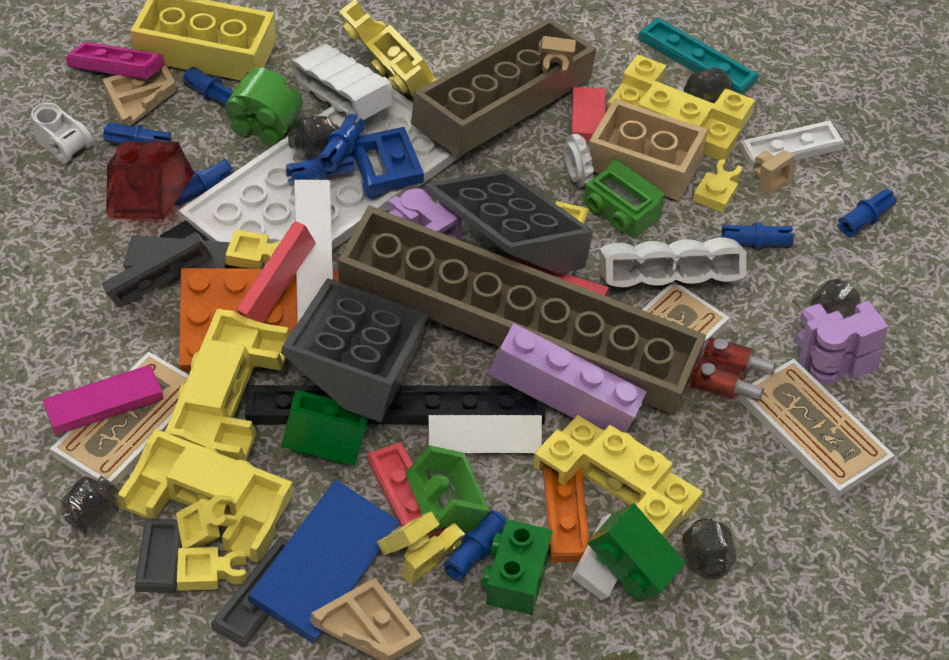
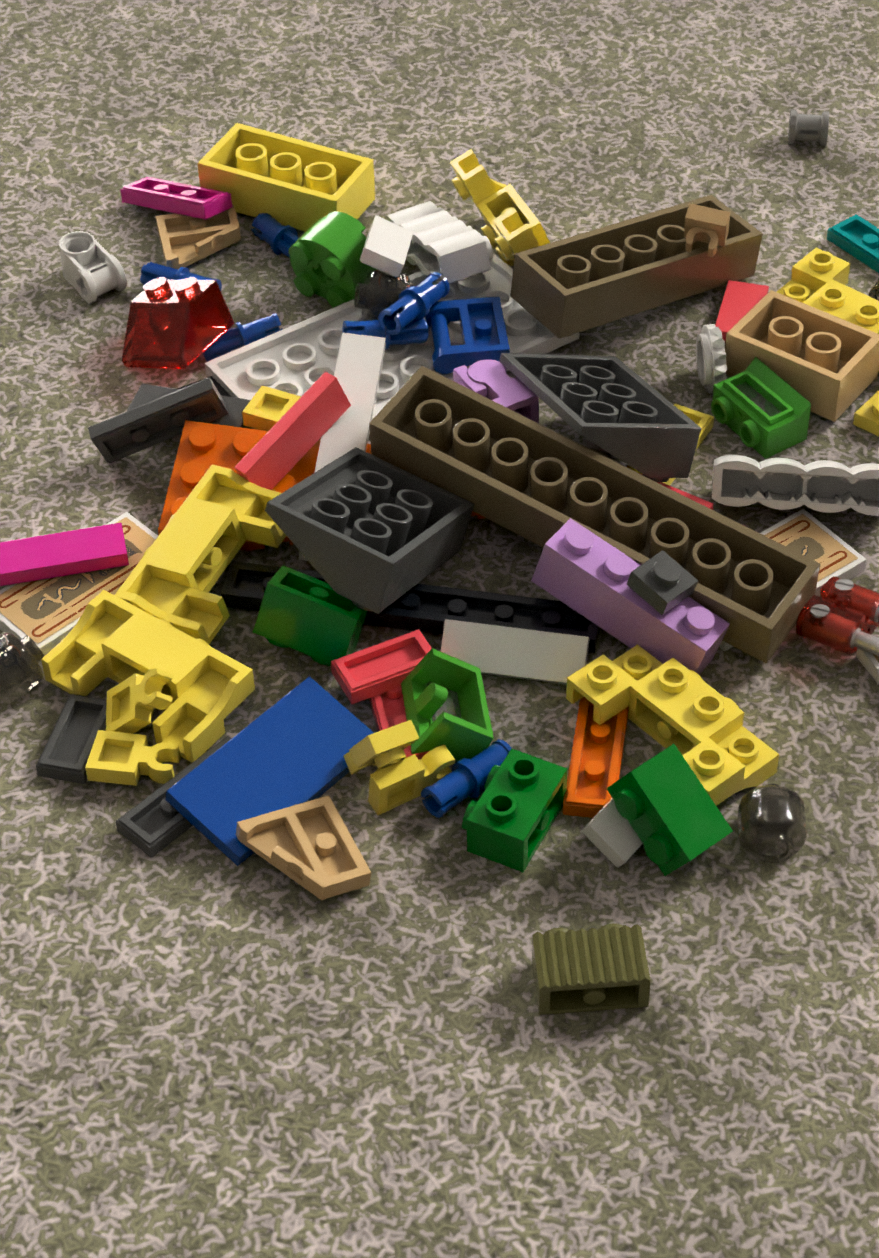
camera: 15 degrees right, 5 degrees down
(308, 95) = (386, 246): none -> white tile
(387, 460) = (379, 666): none -> coral tile
(594, 368) = (662, 582): none -> dark grey plate

